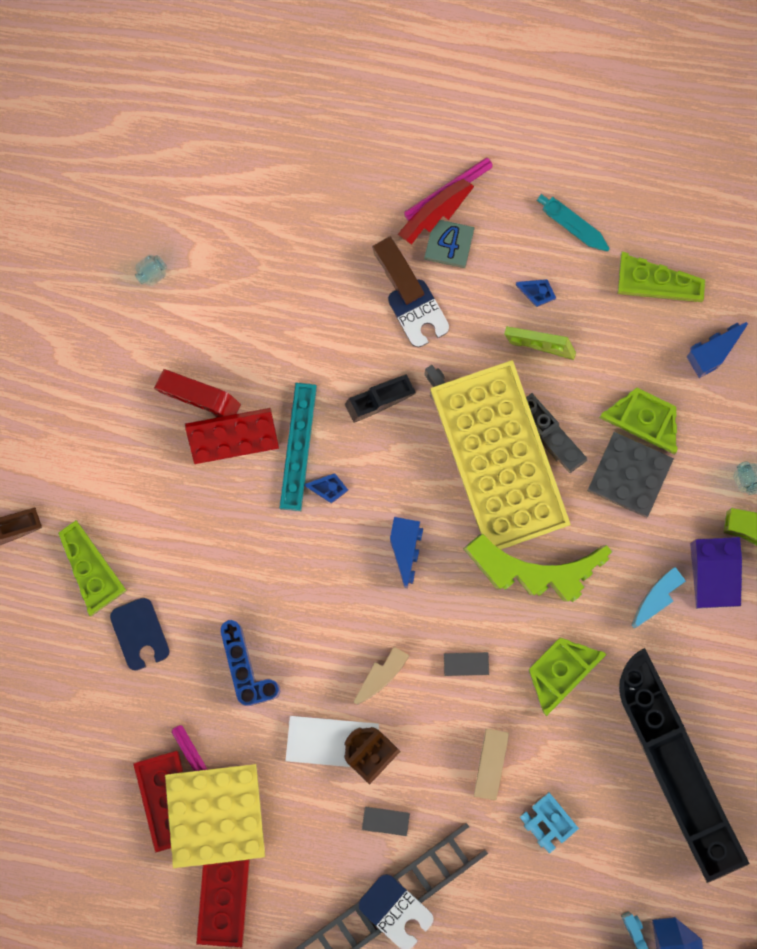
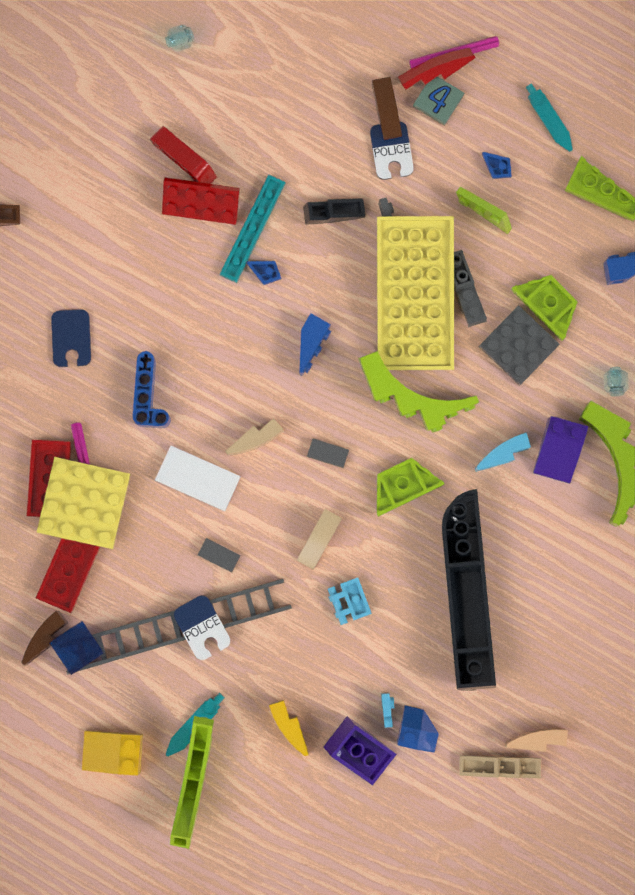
camera: 15 degrees right, 5 degrees up
(94, 575) = (49, 277): lime wing -> none
(369, 752) = (224, 495): reddish brown slope -> none

